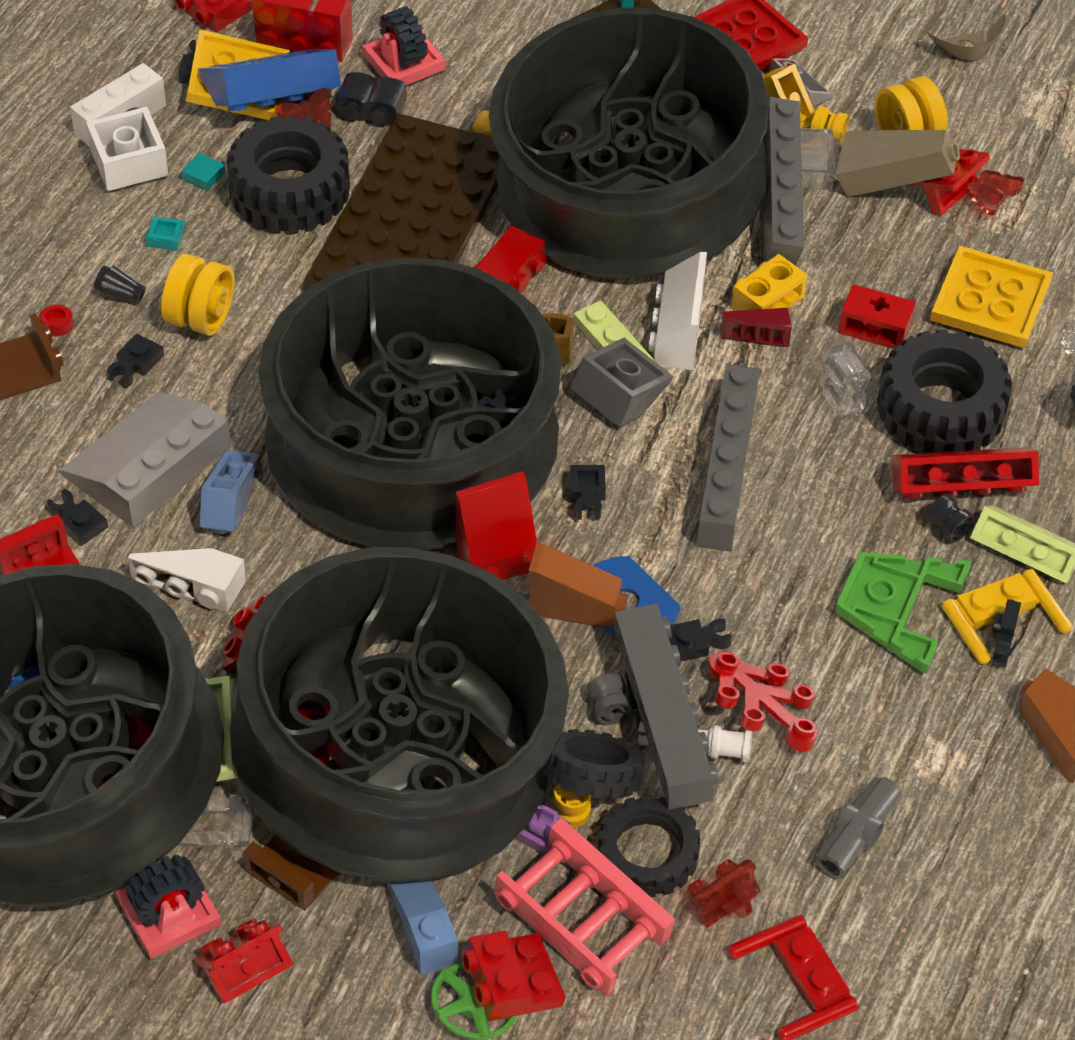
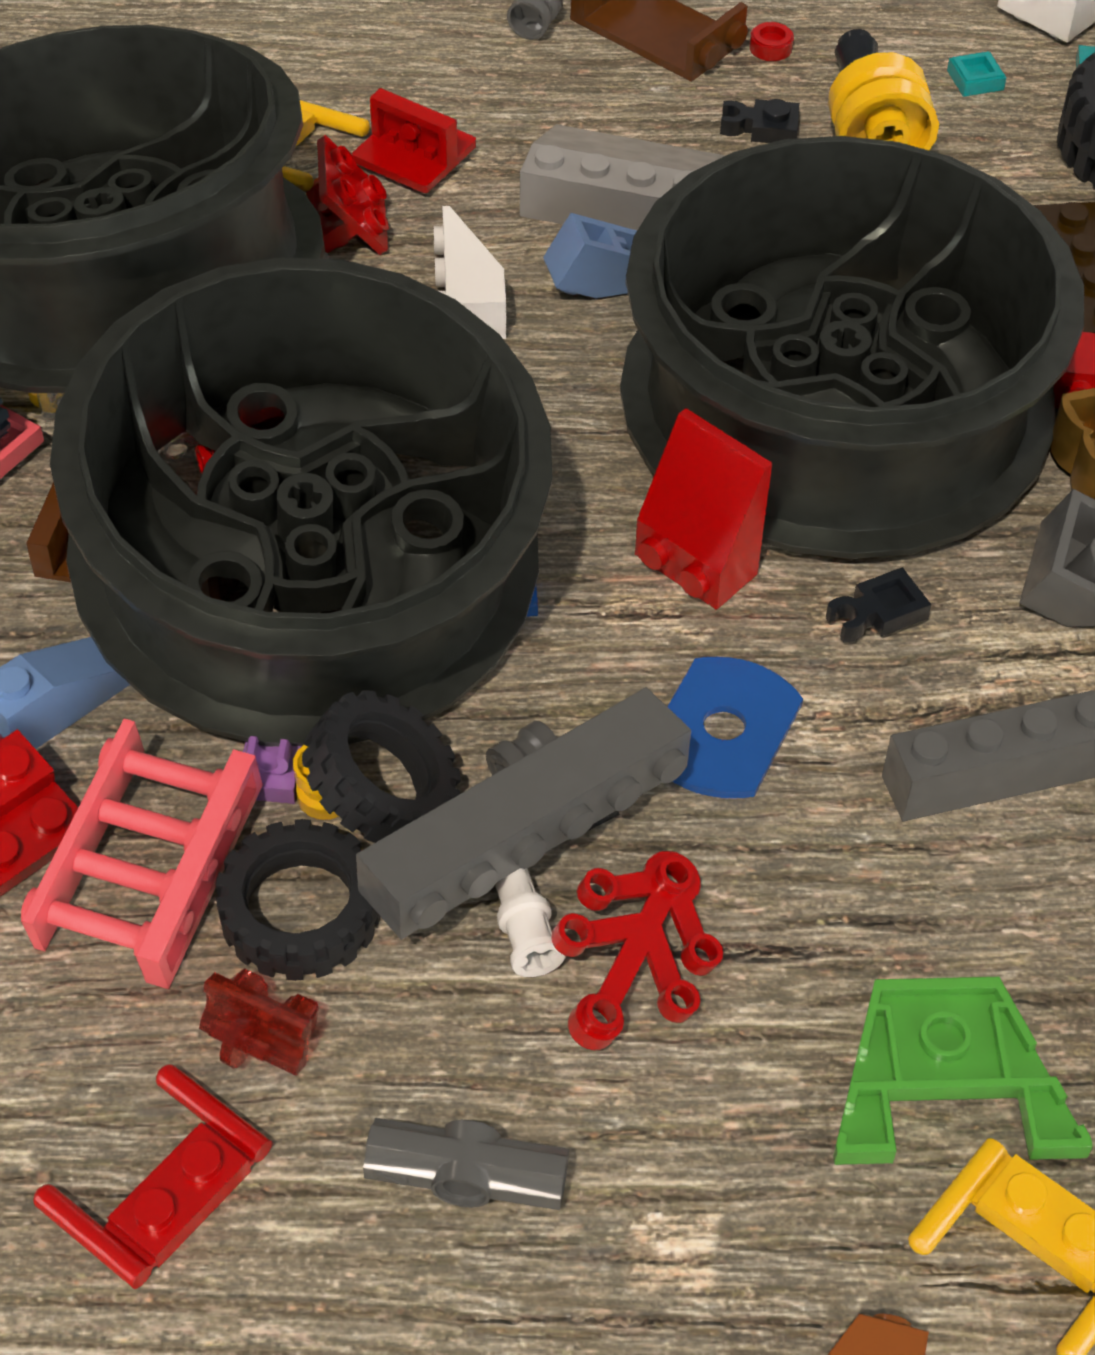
camera: 65 degrees right, 0 degrees up
(80, 520) = (496, 167): black plate -> none
(573, 589) = (678, 636): dark orange slope -> none
(694, 640) = (701, 824): black plate -> none
(1005, 626) = (990, 1252): black plate -> none

